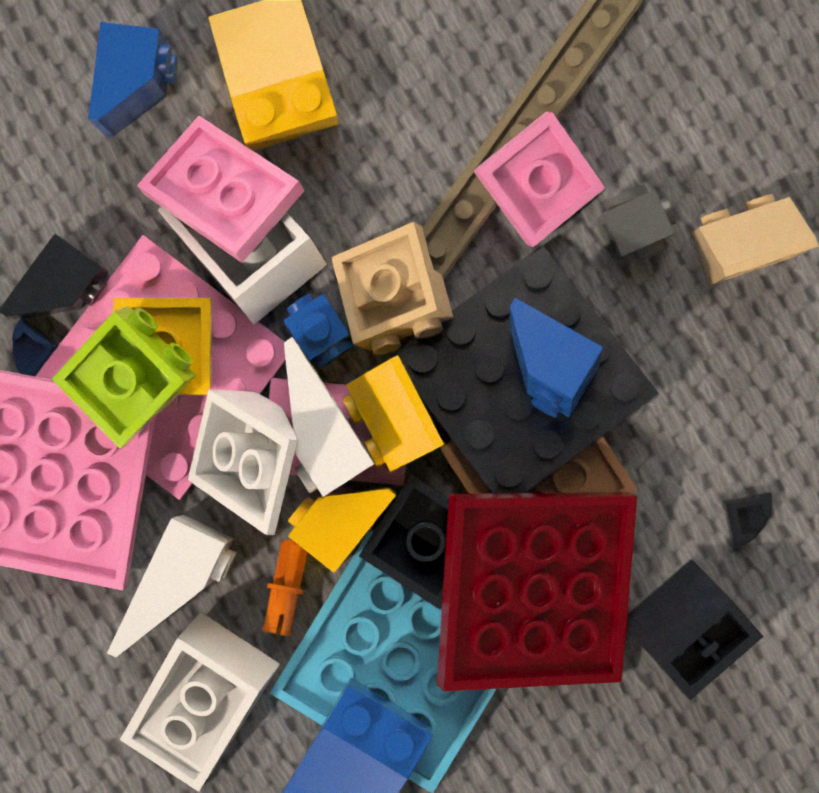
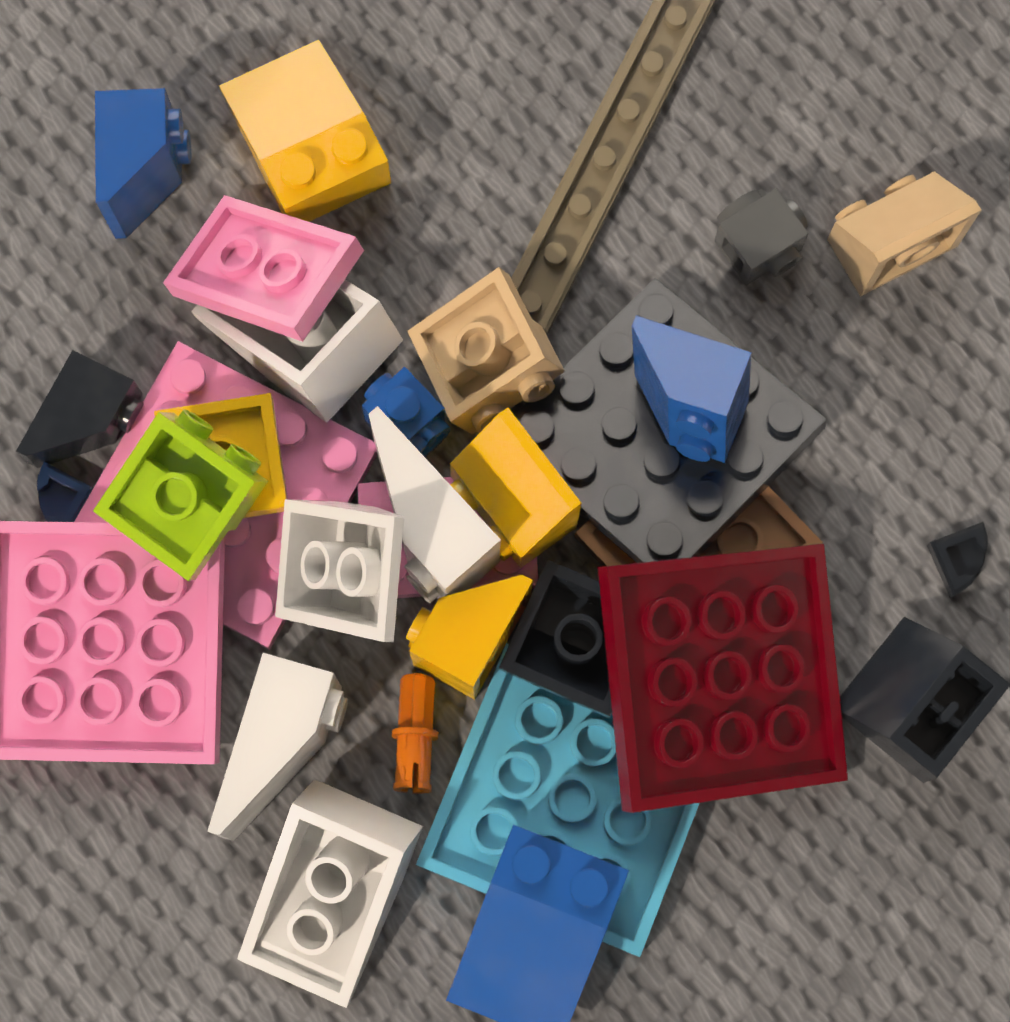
camera: 10 degrees left, 10 degrees down
(539, 179) = (638, 201): bright pink plate -> none

